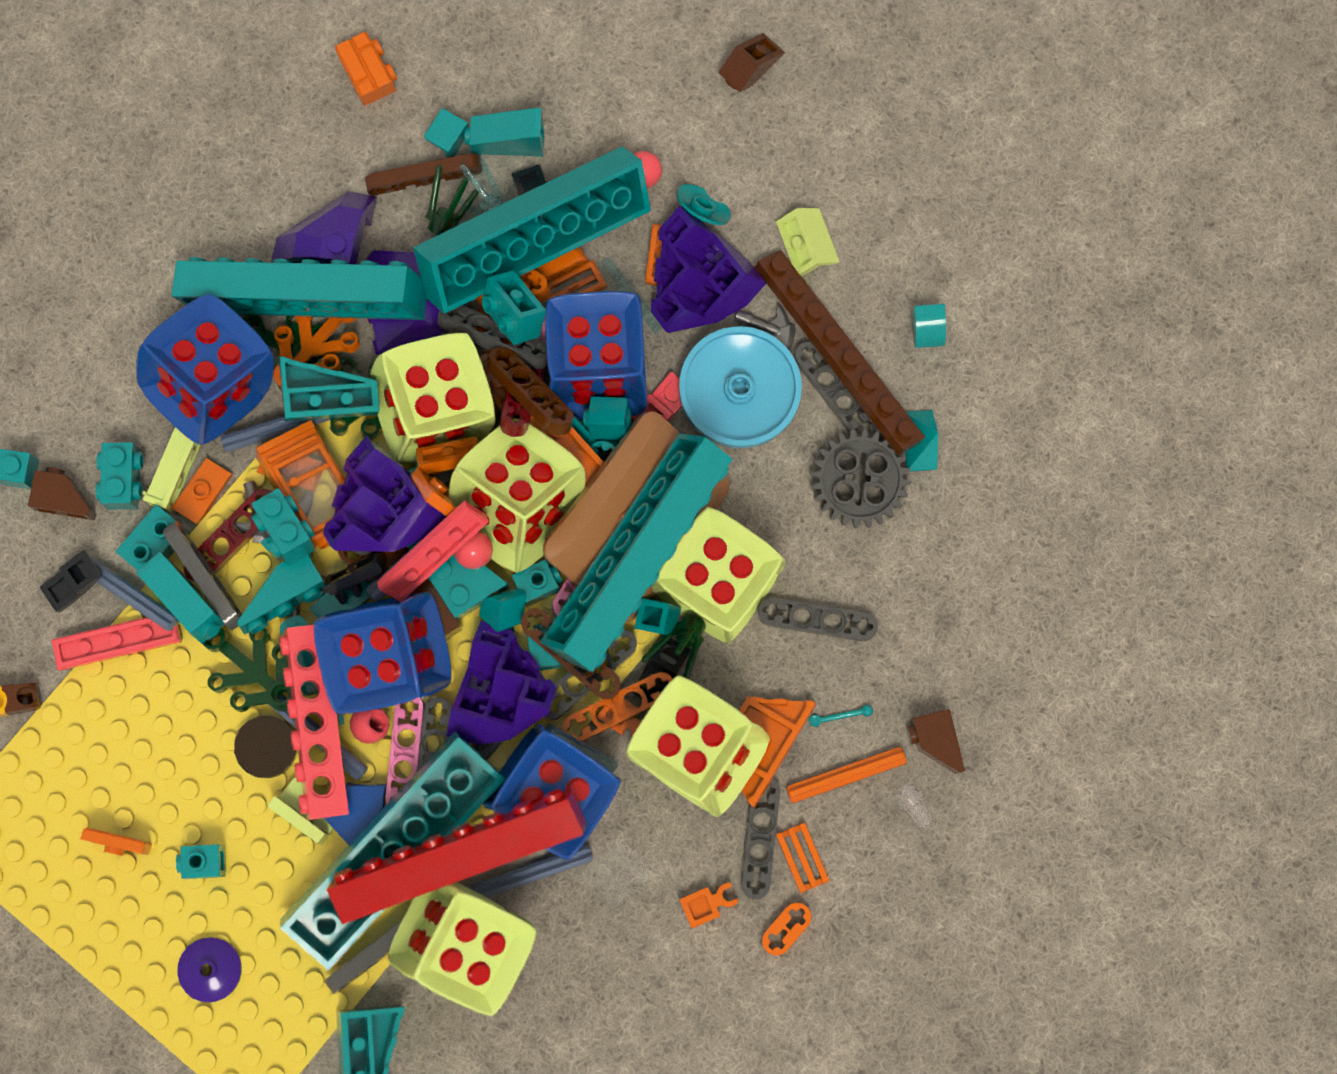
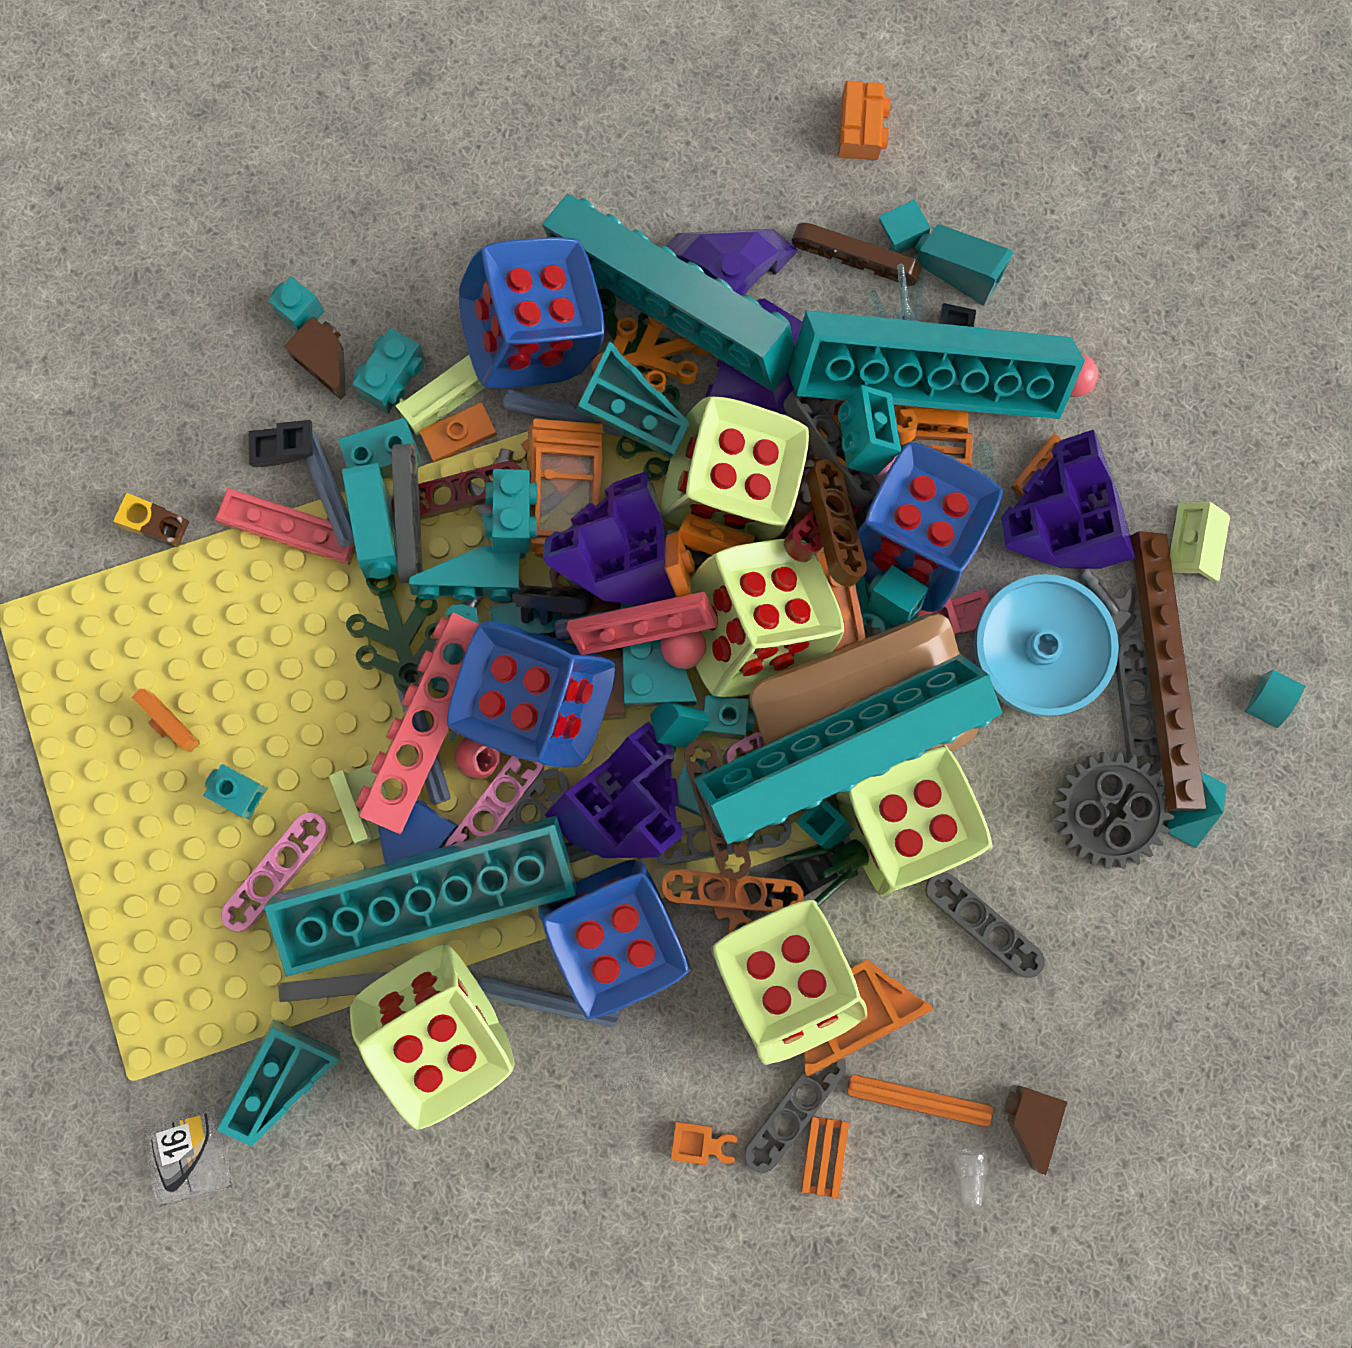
camera: 30 degrees right, 0 degrees up
(225, 966) = (195, 903): dark purple dish -> none
(264, 901) = (279, 875): none -> bright pink beam
(265, 747) = (363, 716): dark brown tile -> none
(445, 218) = (852, 305): dark green plant -> none
(457, 855) = (480, 946): red brick -> none
(604, 760) = (679, 924): clear light blue bar -> none
(702, 206) = (1114, 445): teal dish -> none
(750, 62) = (1246, 331): reddish brown slope -> none
(792, 934) = (768, 1228): orange beam -> none
(816, 720) = (921, 1025): teal hinge -> none

